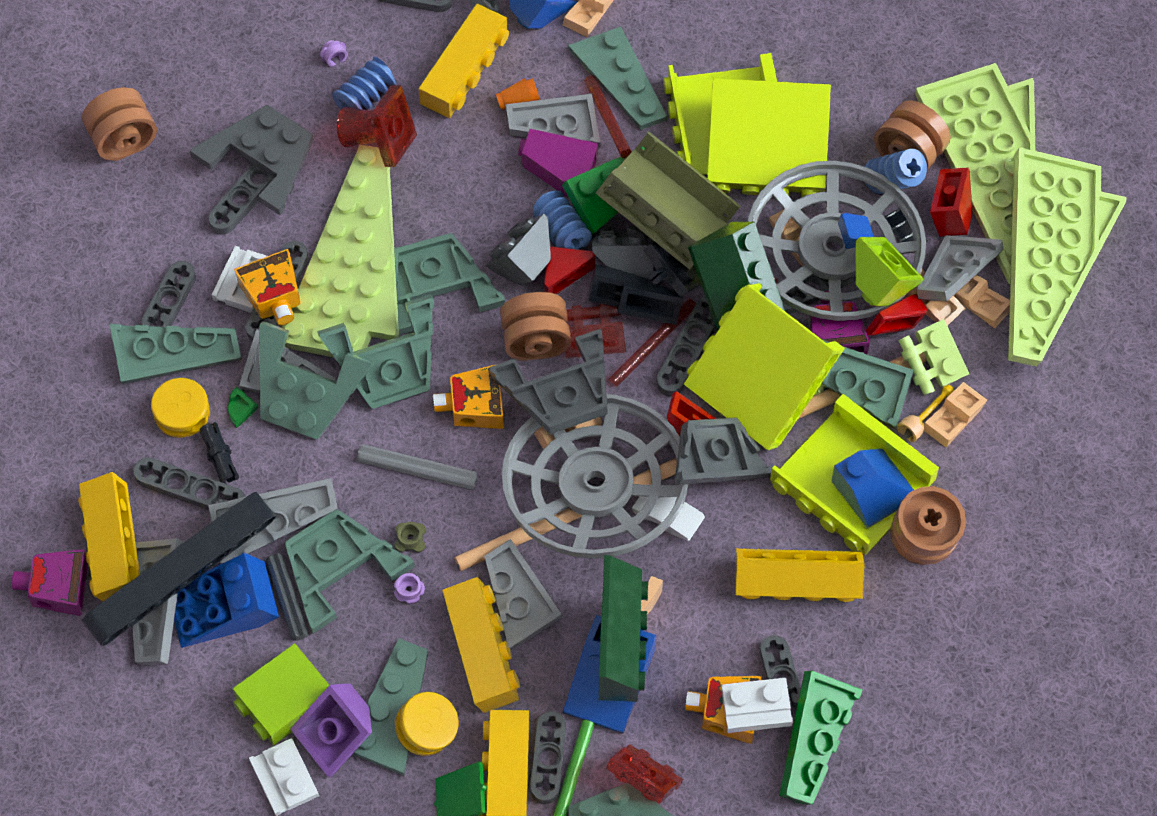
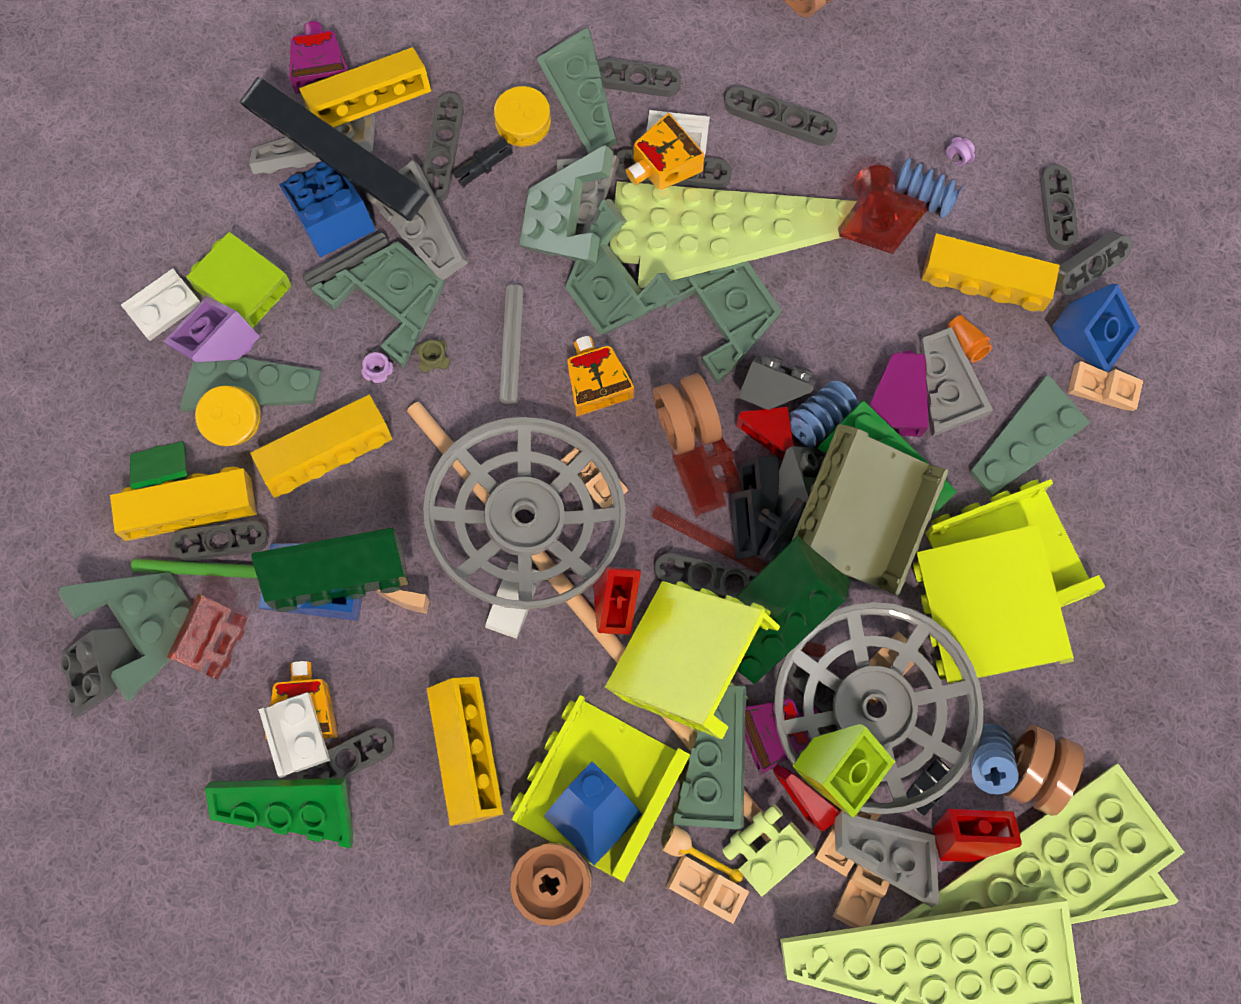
camera: 75 degrees right, 10 degrees up
(240, 407) = (538, 169): green tile -> none
(269, 143) = (832, 117): dark grey wing -> none
(520, 597) = (386, 475): light grey wing -> none
(565, 395) = (607, 460): dark grey wing -> none
(607, 116) = (967, 431): clear red bar -> none
(717, 452) = (580, 632): dark grey wing -> none
(853, 227) = (891, 726): blue slope -> none

